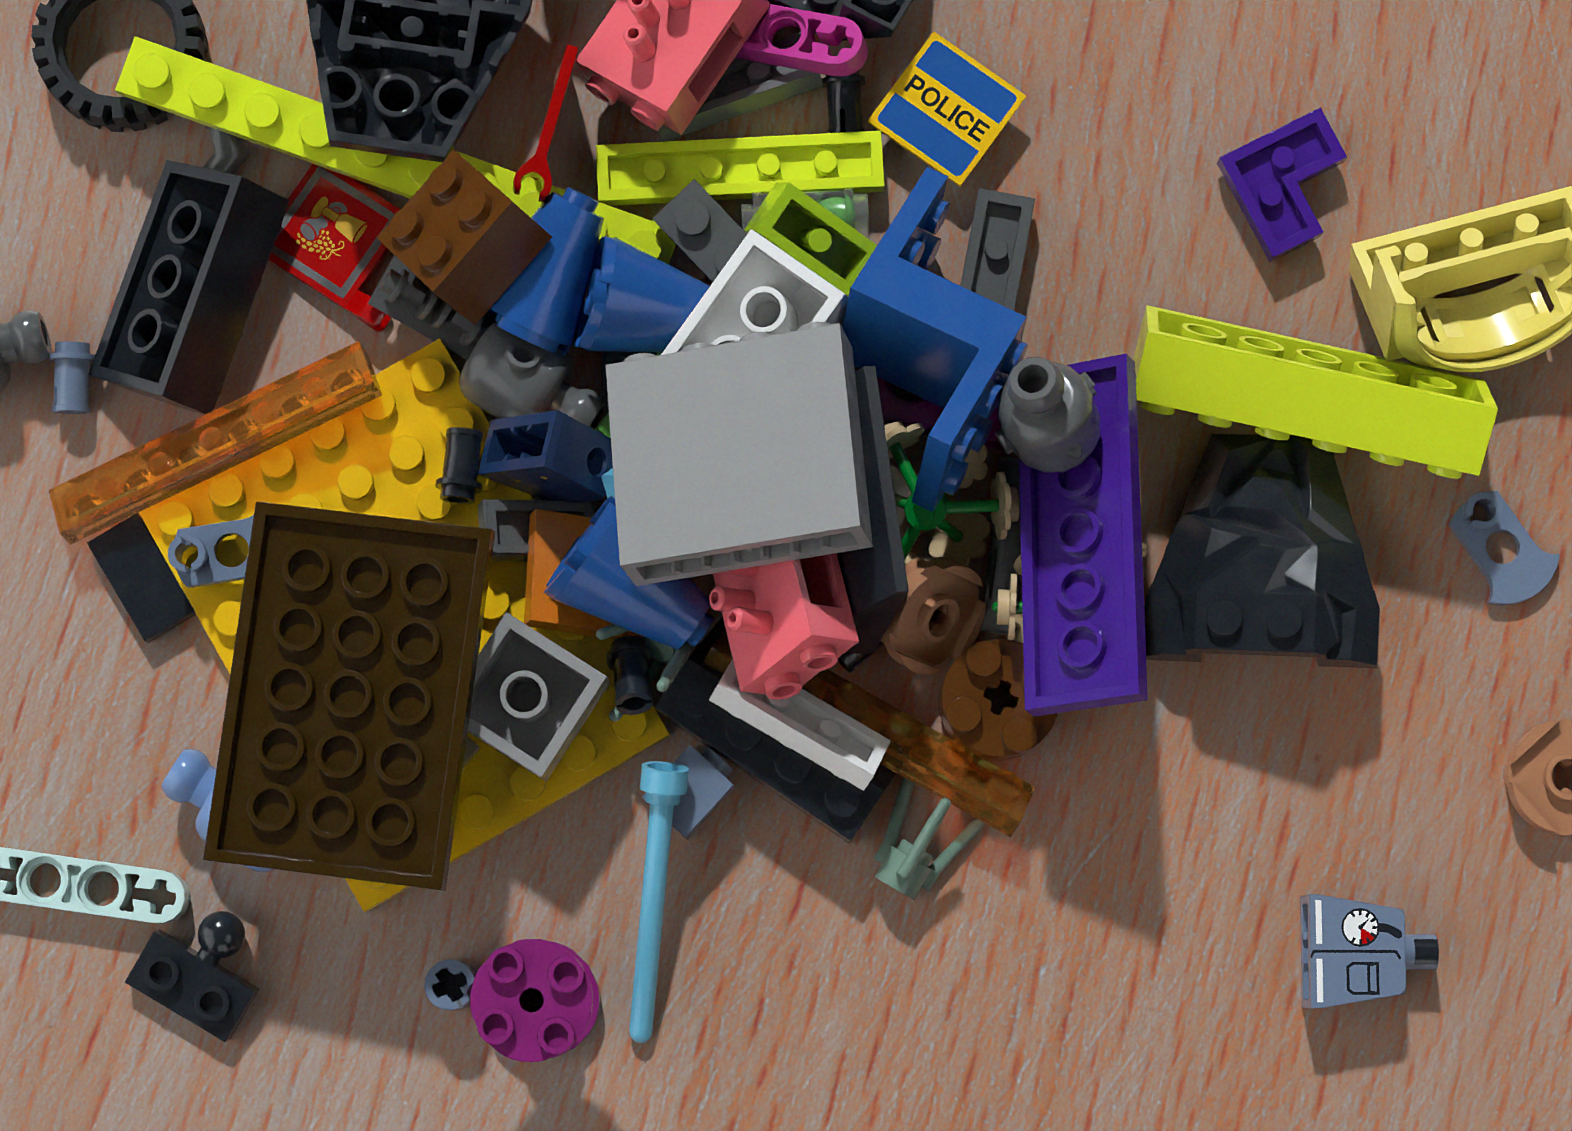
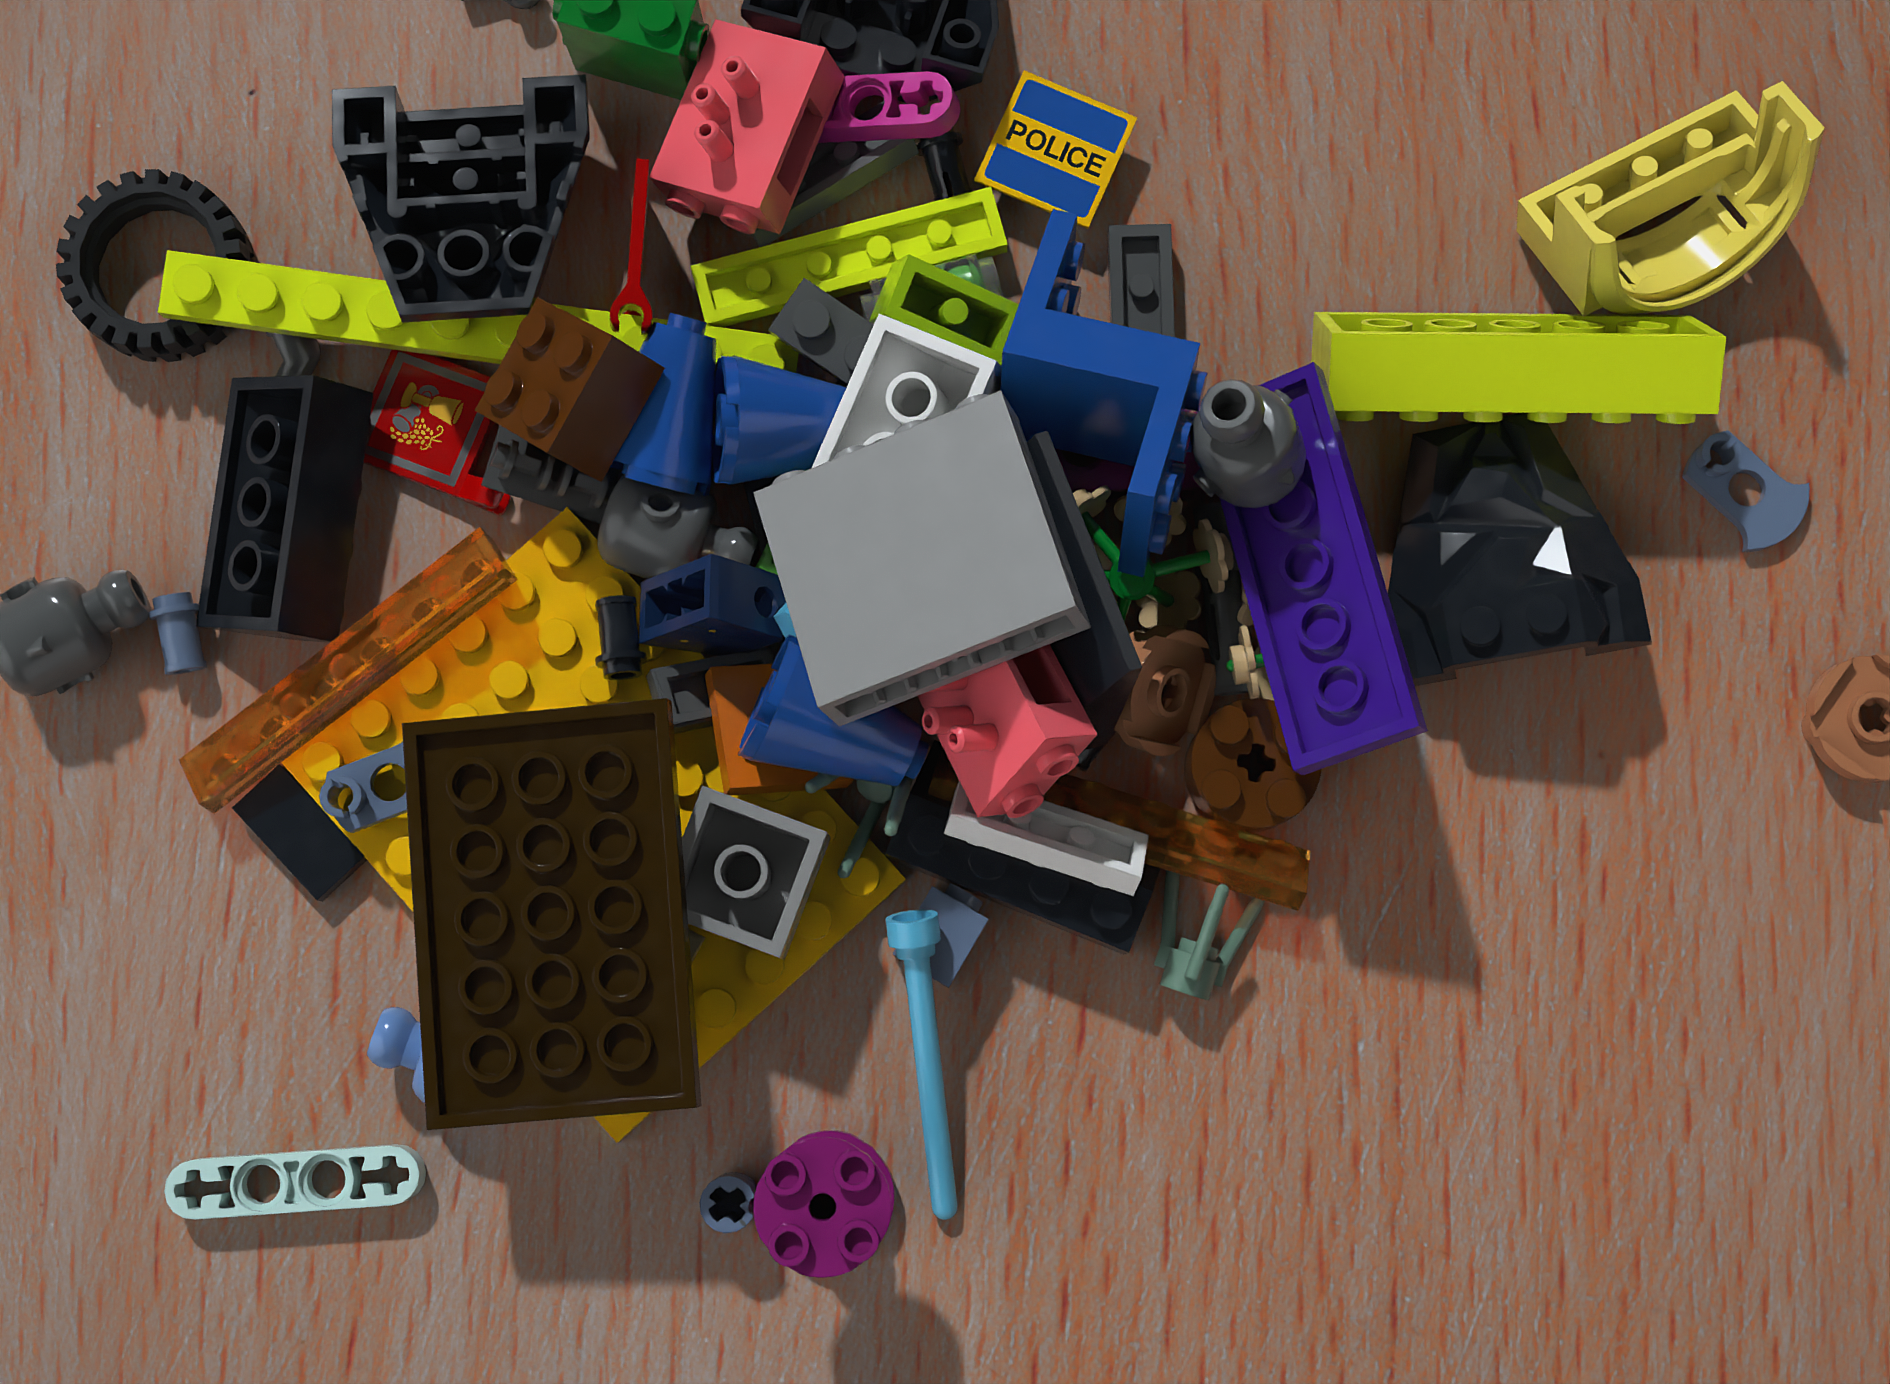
camera: 10 degrees left, 0 degrees up
(194, 981) = (447, 1258): black plate -> none
(630, 663) = (847, 809): black pin -> none
(1268, 177) = (1411, 151): dark purple plate -> none
(1357, 951) = (1694, 954): sand blue torso -> none

